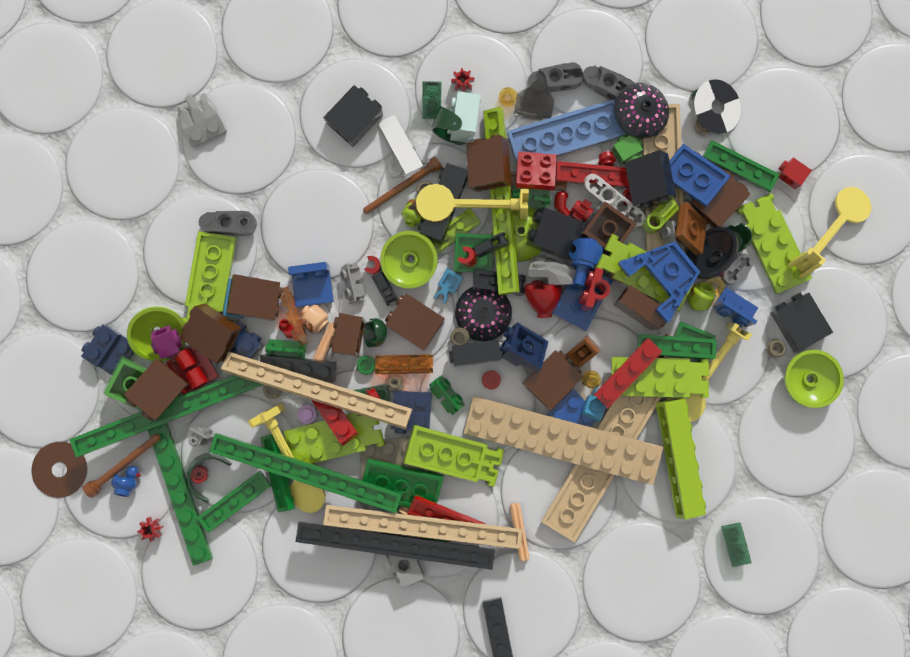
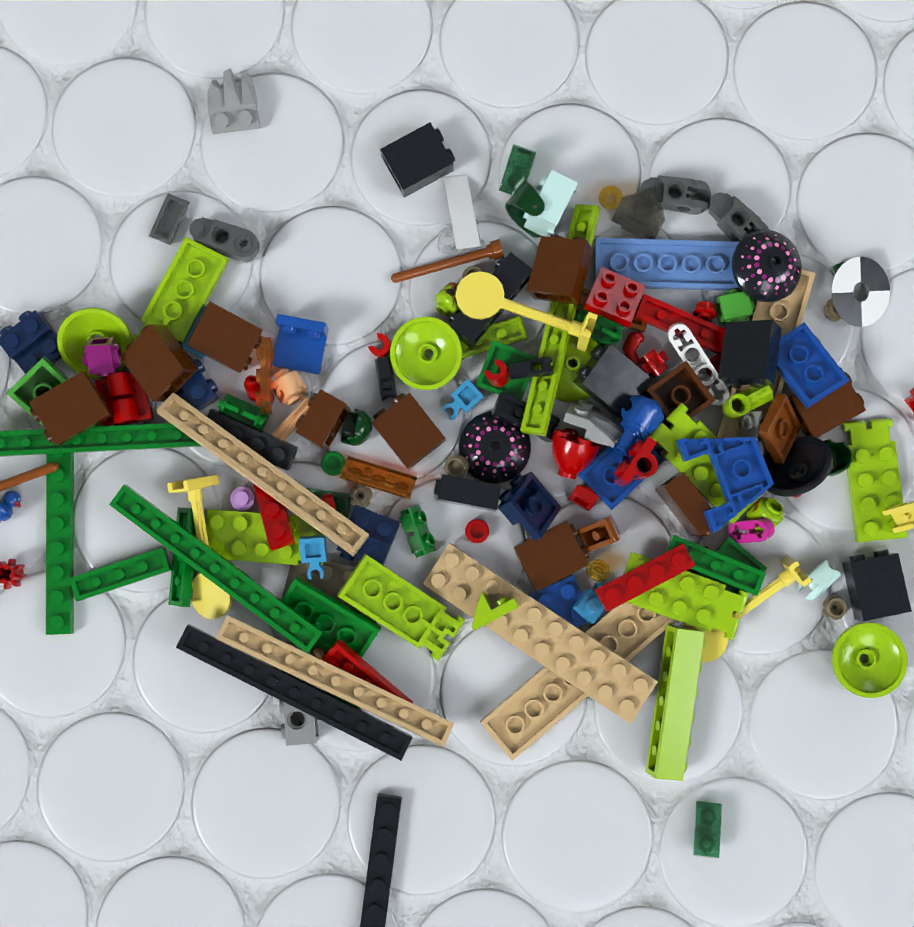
camera: 15 degrees right, 0 degrees up
(180, 222) = (169, 219): none -> flat silver tile
(198, 459) = (92, 510): dark green piece -> none
(198, 479) = (89, 533): red plate -> none
(200, 435) = (105, 481): light grey hinge -> none
(271, 393) = (209, 459): dark tan plate -> none
(353, 291) = (348, 351): light grey hinge -> none
(375, 436) = (313, 551): none -> dark azure plate
(462, 86) = (565, 153): red gear -> none
(518, 438) = (486, 613): none -> lime slope
(518, 523) = (451, 715): light nougat axle -> none
(562, 328) = (583, 497): none -> red plate
(696, 314) = (751, 535): none -> dark pink beam
(720, 282) = (793, 507): clear yellow plate -> none
(735, 308) = (801, 542): blue bracket -> none
(740, 272) = (822, 501): flat silver beam -> none
(741, 166) = (865, 373): green plate -> none
(758, 331) = (822, 578): none -> light aqua piece

